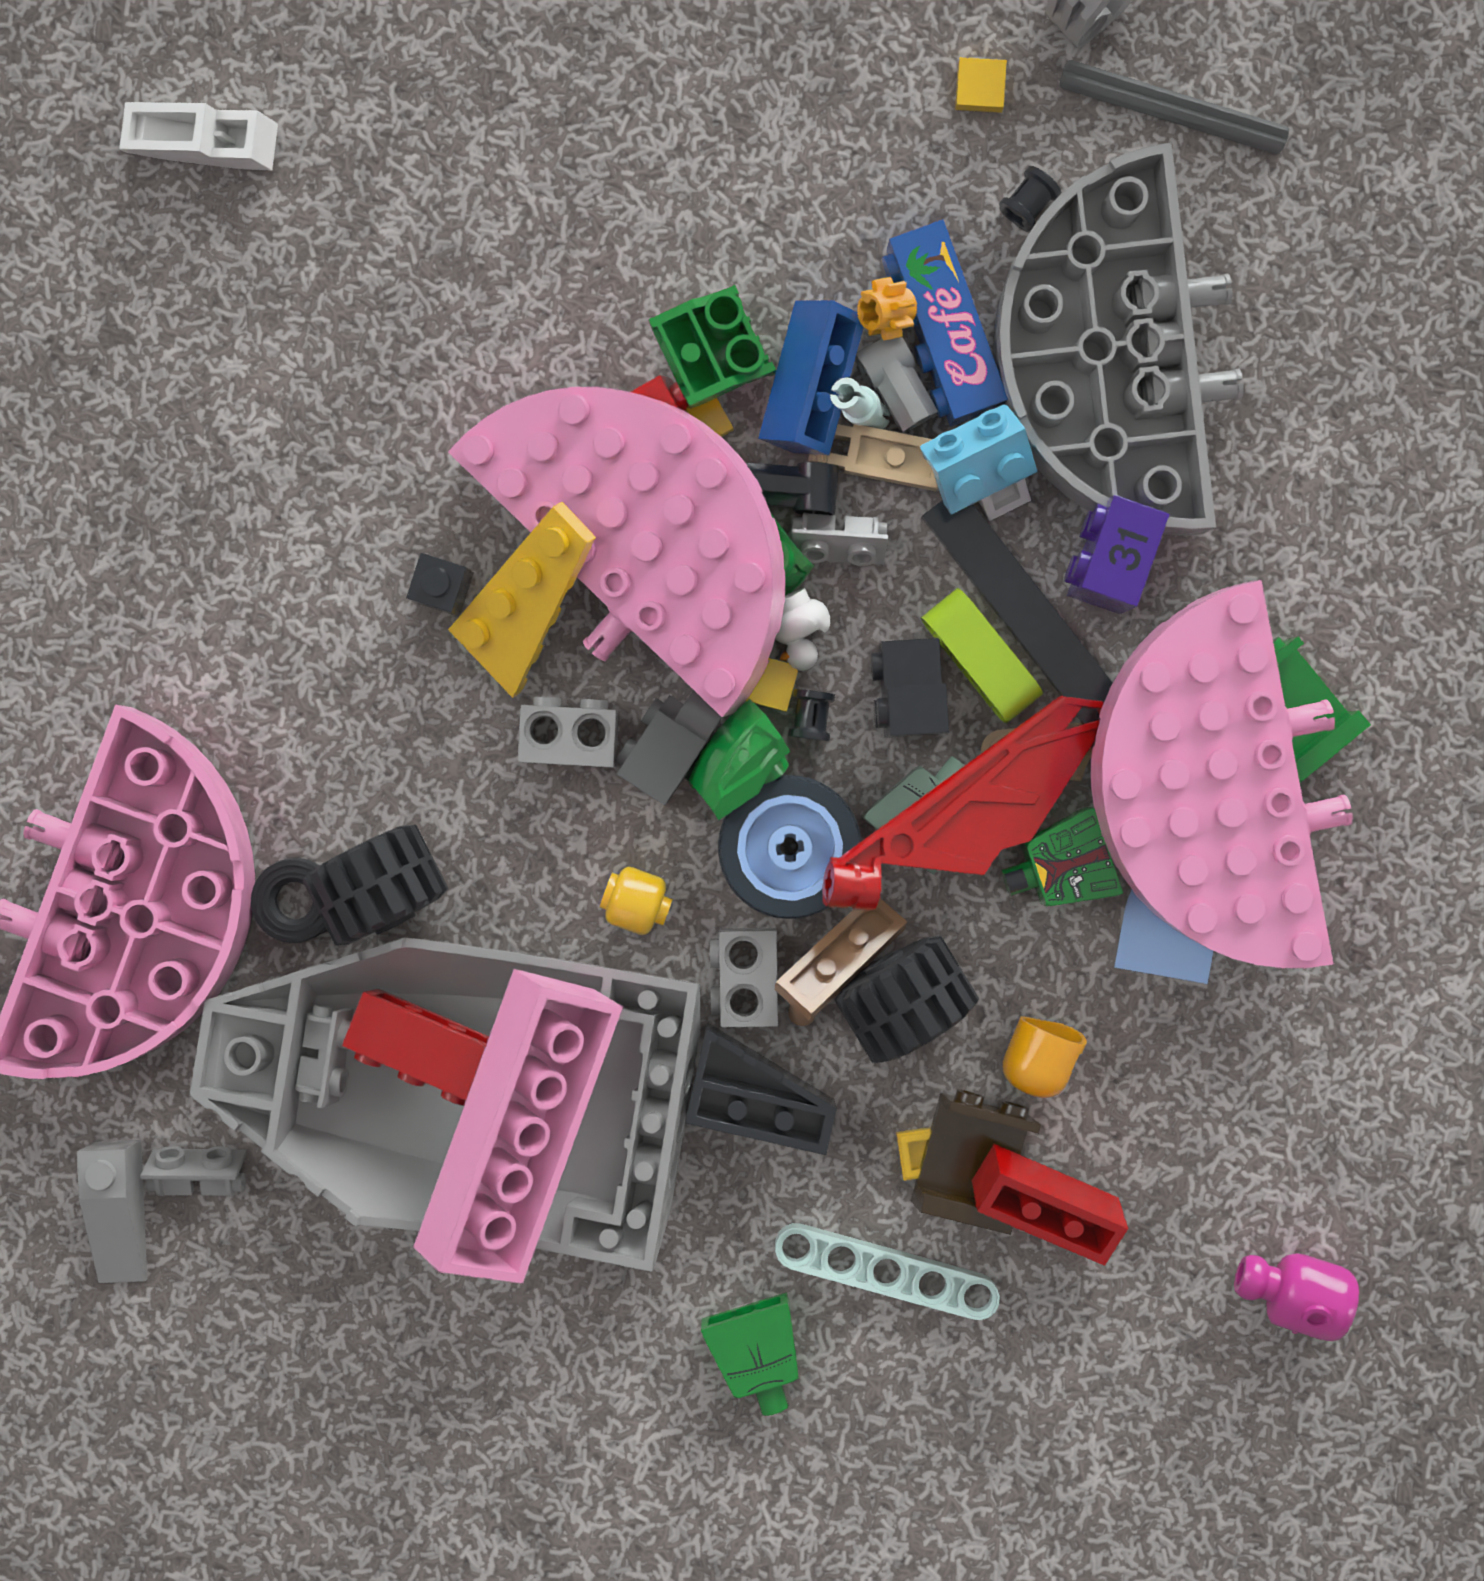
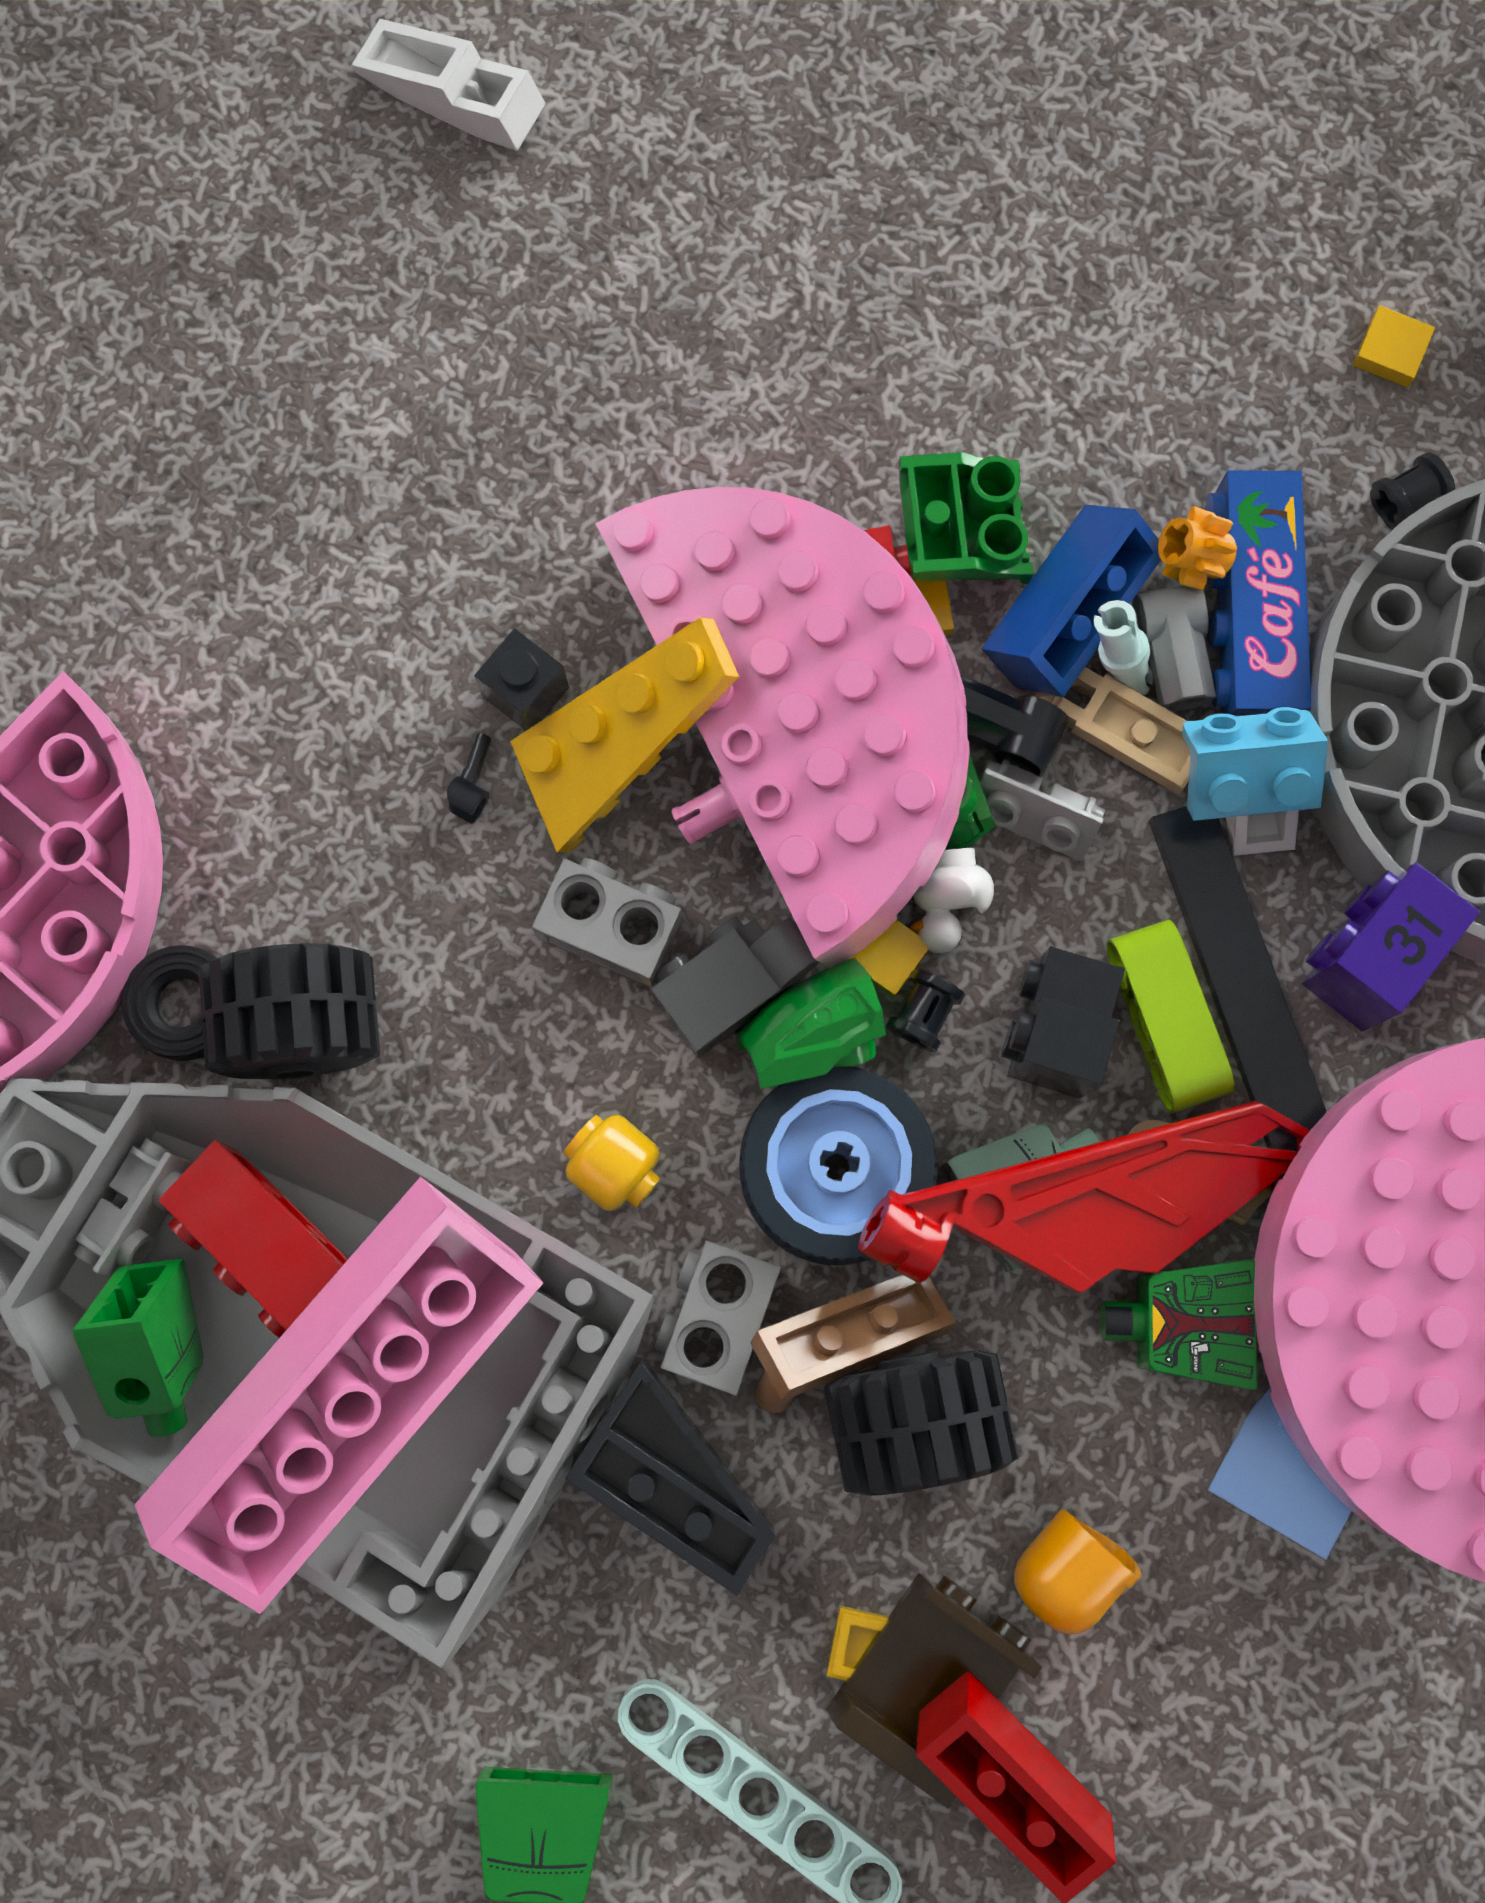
camera: 20 degrees right, 10 degrees down
(372, 1141) = (143, 1344): none -> green torso
(431, 682) = (464, 796): none -> black hand

